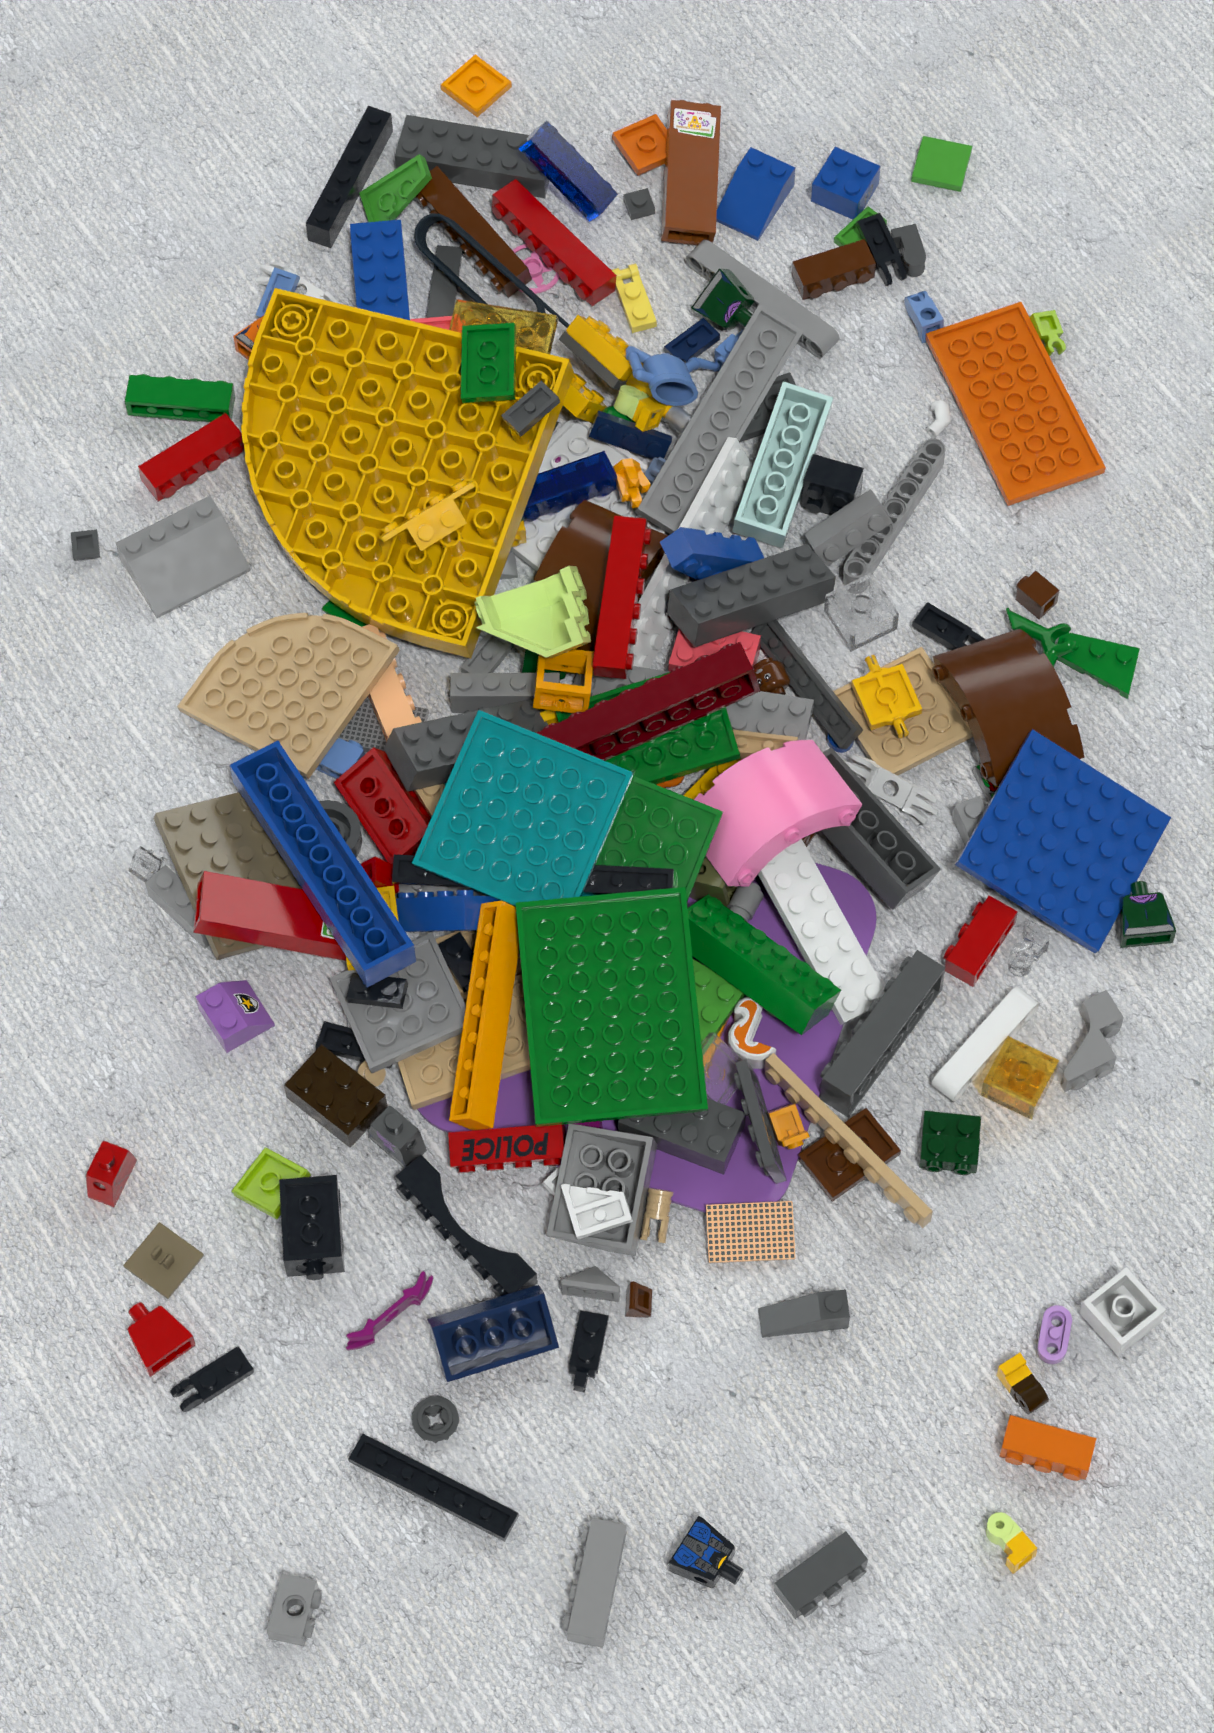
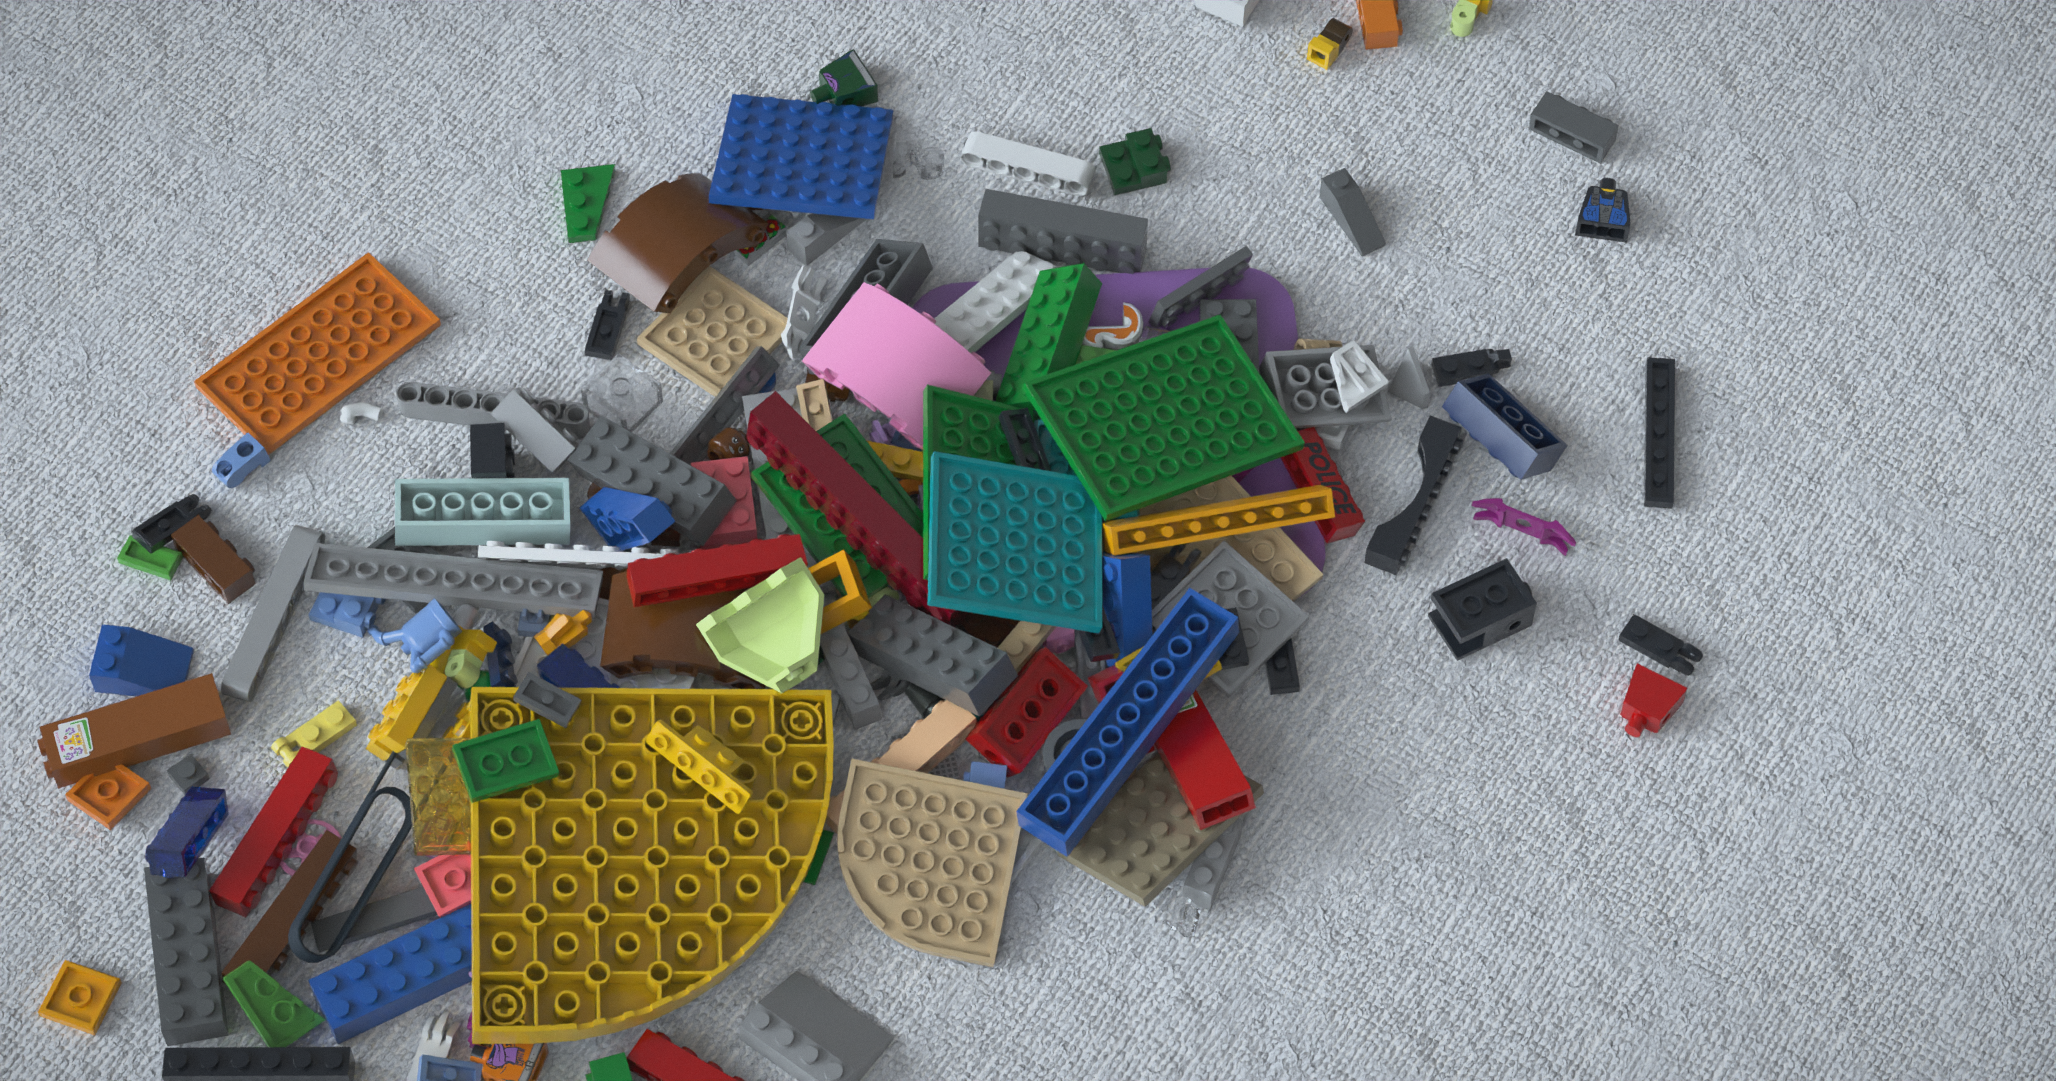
camera: 115 degrees left, 5 degrees down
(111, 1169) = (1515, 805): red torso -> none
(163, 1260) = (1570, 736): dark tan piece -> none
(233, 1013) = (1301, 772): medium lavender slope -> none
(261, 1181) = (1452, 671): lime tile -> none
(292, 1592) = (1815, 503): light grey brick -> none
(335, 1096) = (1341, 648): dark brown brick -> none
(374, 1078) = (1304, 634): tan plate -> none
(393, 1135) = (1359, 575): dark grey torso -> none
(431, 1407) = (1608, 451): dark grey gear -> none
(596, 1582) = (1672, 280): light grey brick -> none
(638, 1300) = (1400, 344): reddish brown slope -> none
(693, 341) = (357, 658): dark blue hinge -> none
(725, 300) = (297, 635): dark green torso -> none
(750, 1232) = (1298, 278): light nougat tile -> none
(787, 1126) = (1194, 266): light orange bracket -> none
(832, 1168) = (1187, 230): reddish brown plate -> none
(845, 183) = (98, 582): blue brick -> none
(854, 1148) = (1186, 215): tan plate -> none
(886, 696) = (710, 341): yellow plate -> none
(911, 249) = (161, 496): dark grey leg -> none
(941, 163) = (35, 511): bright green tile -> none
(979, 940) = (927, 197): red brick -> none
(1019, 1077) = (1052, 121): clear yellow brick -> none
(1036, 594) = (537, 265): reddish brown brick -> none
(1045, 636) = (581, 246): green piece -> none
(1049, 330) = (217, 350): lime plate -> none
(1054, 1336) = (1272, 33): lavender plate -> none
(1094, 1054) = (998, 82): light grey arch -> none

